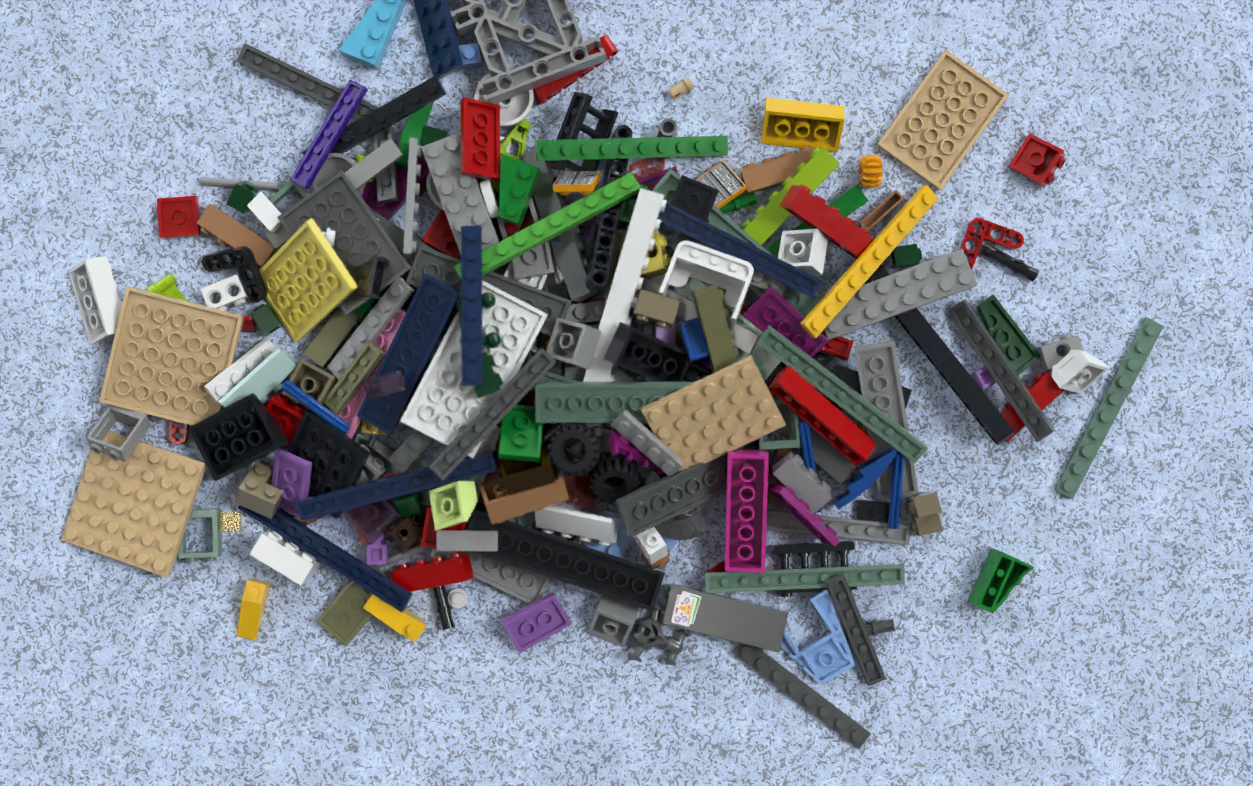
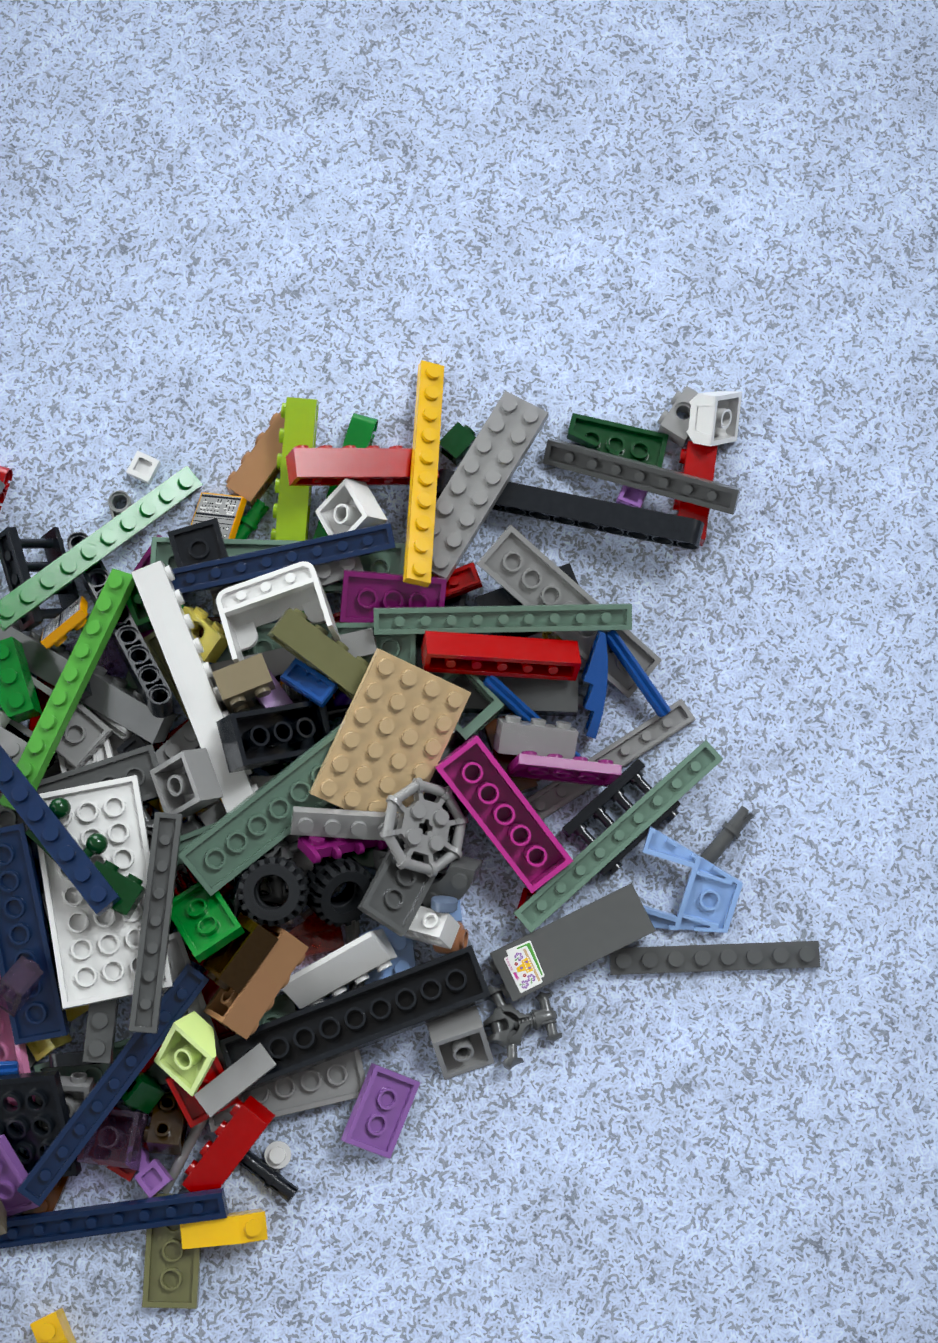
camera: 35 degrees left, 10 degrees down
(285, 557) = (54, 1263): white brick -> none
(645, 163) = (126, 553): clear red beam -> none
(668, 536) = (444, 904): none -> sand blue tile
(681, 88) = (105, 457): tan pin -> none
(695, 493) = (436, 820): none -> light grey plate
(700, 115) = (143, 467): none -> white plate
(802, 124) = (251, 398): yellow slope -> none
(855, 629) = (713, 845): dark grey tile -> none
(870, 171) = (356, 389): light orange gear -> none
(873, 510) = (632, 714): black plate -> none
(881, 210) = (398, 417): medium nougat piece -> none
(924, 512) = (684, 673): dark tan brick -> none
(942, 120) = (387, 291): tan plate -> none
(985, 234) = (517, 364): red beam -> none
(997, 580) = (810, 681): green wedge -> none
(1008, 261) = (569, 370): black pin -> none
(1038, 160) = (510, 257): red plate -> none
(1108, 407) = (775, 434): sand green plate -> none

